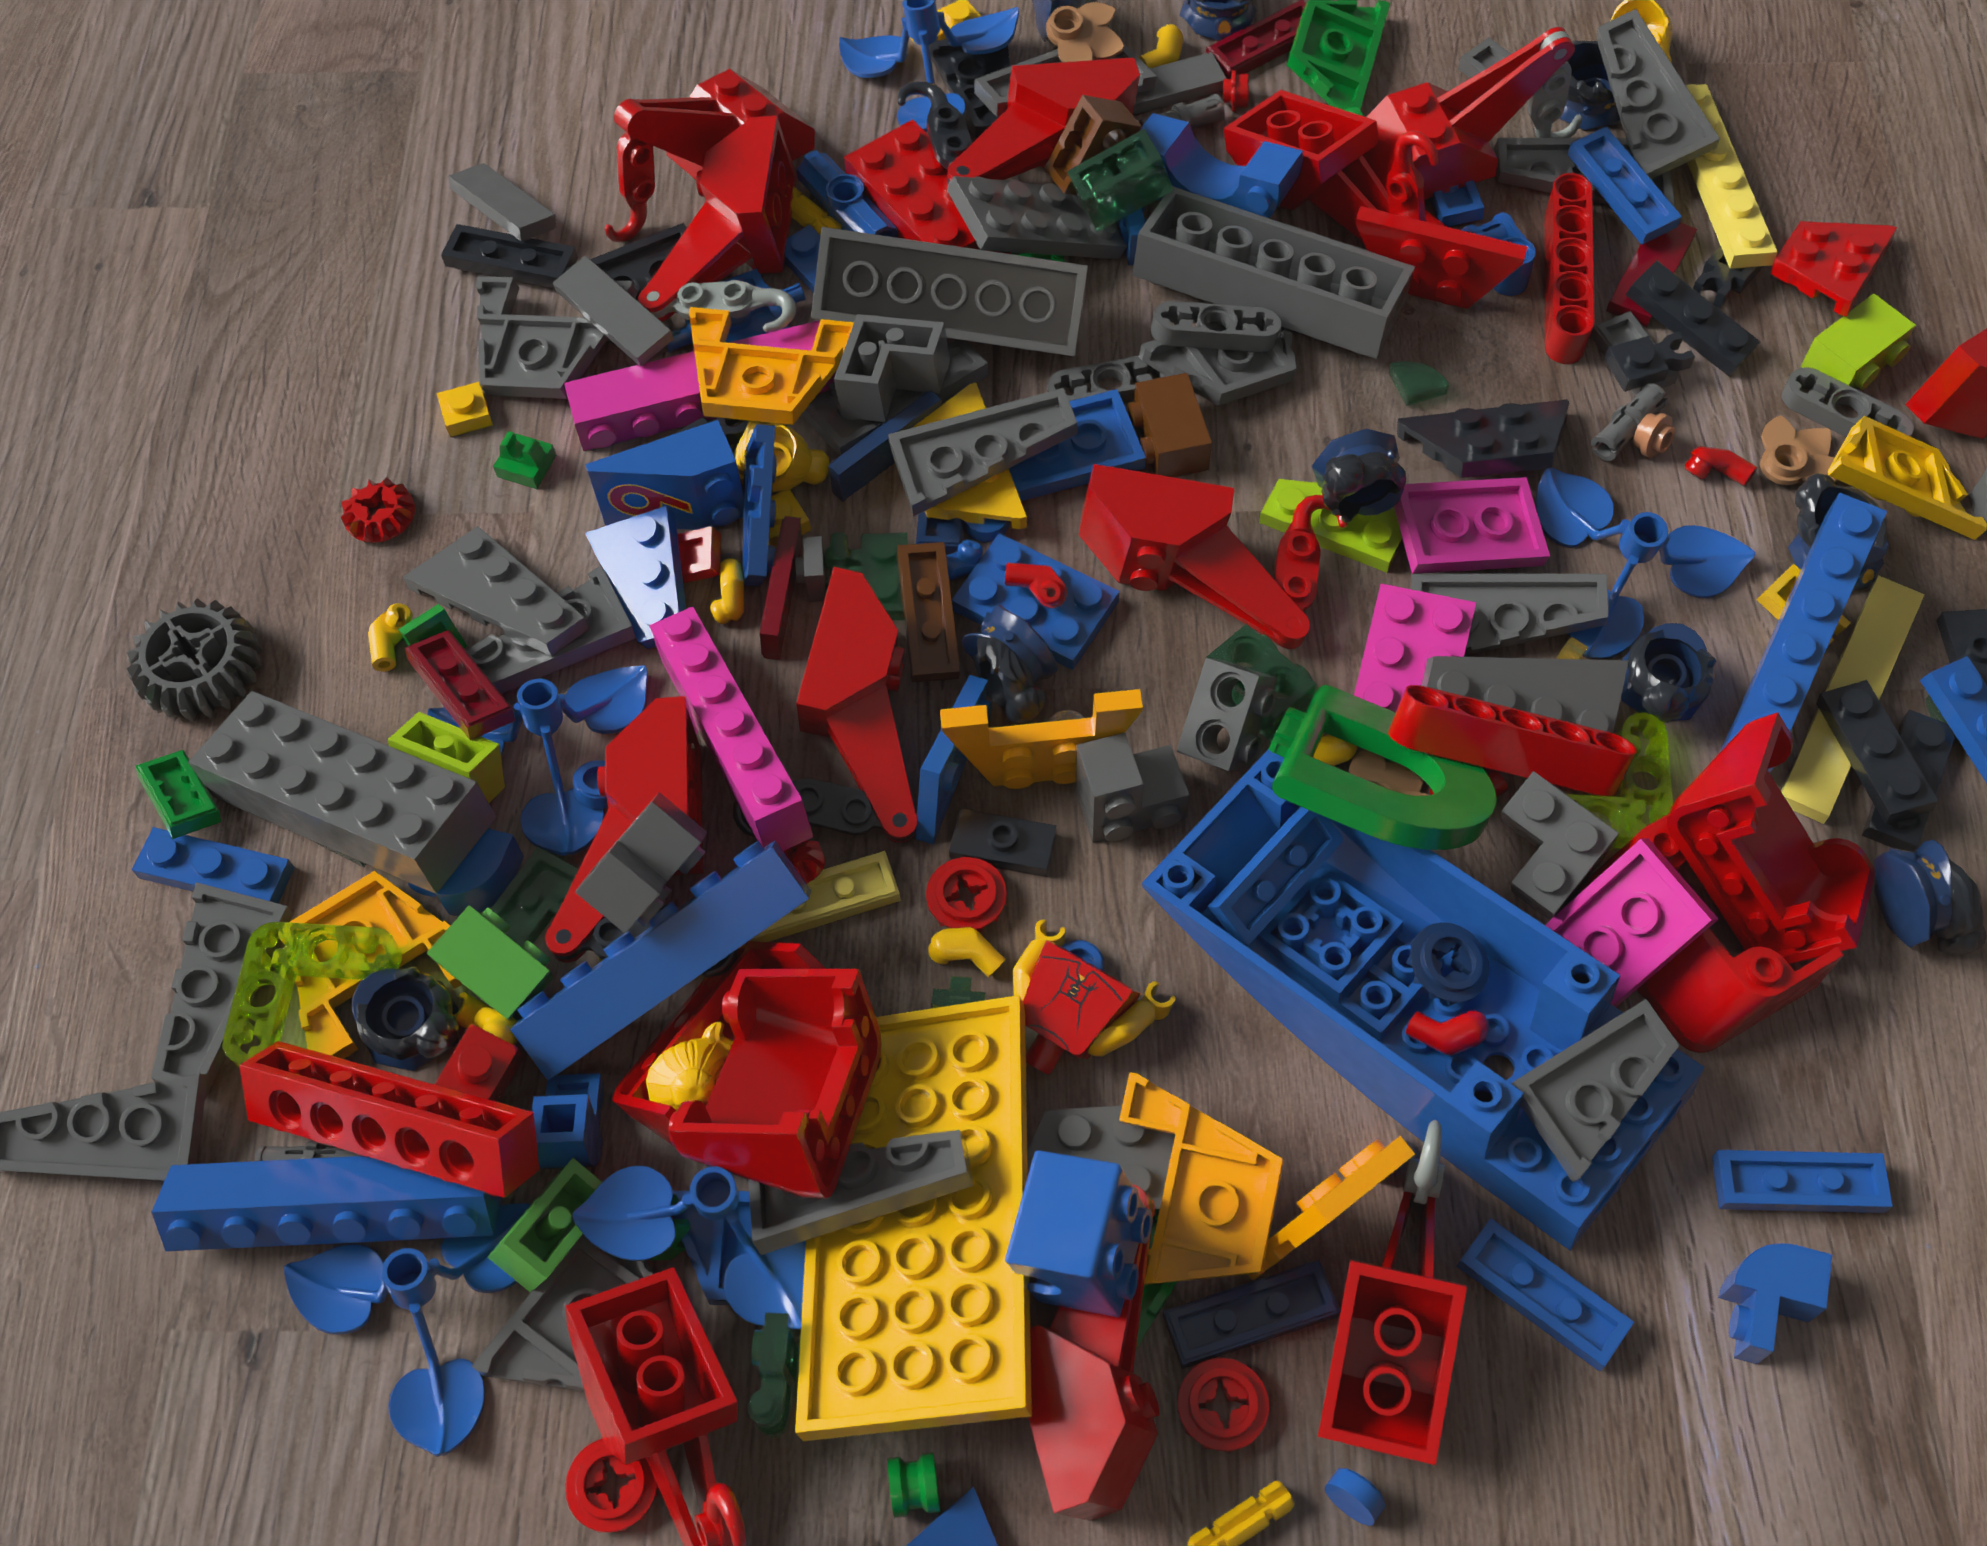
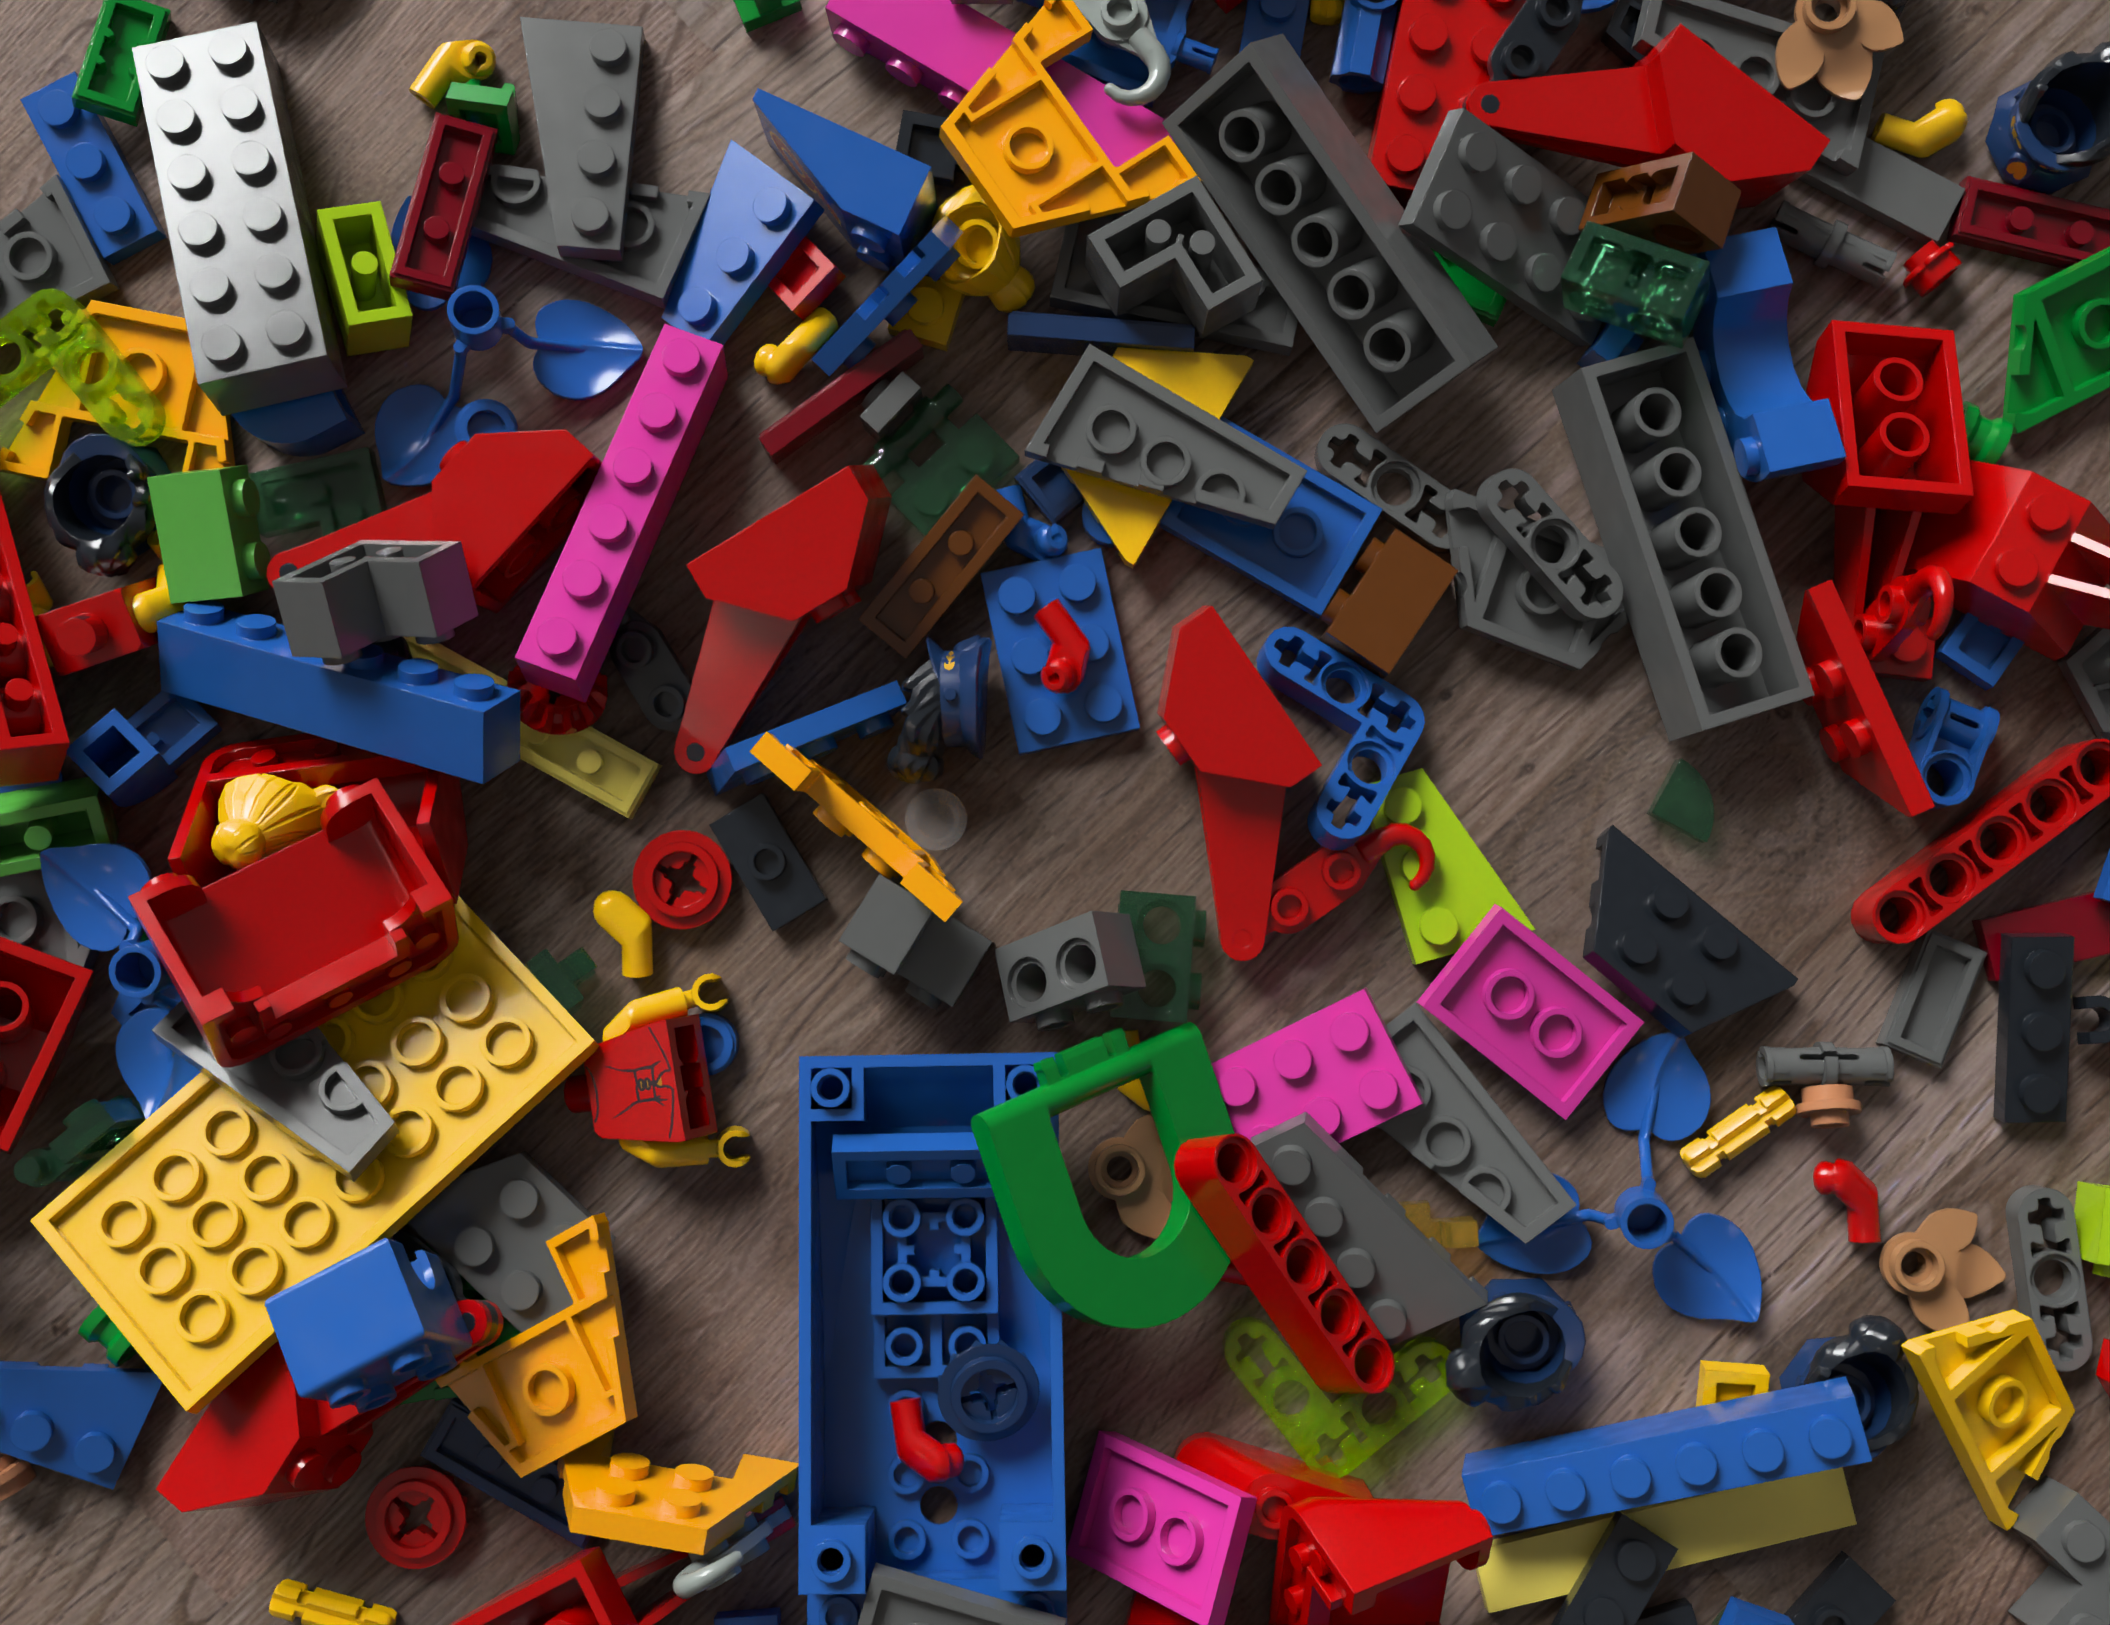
camera: 45 degrees right, 25 degrees up
(1248, 479) = (1369, 733): none -> blue beam
(1360, 474) = (1465, 870): piece -> none
(1567, 839) = (1215, 1402): dark grey brick -> none
(1631, 483) = (1738, 1131): none -> yellow axle
(1644, 362) = (1919, 1024): black plate -> none

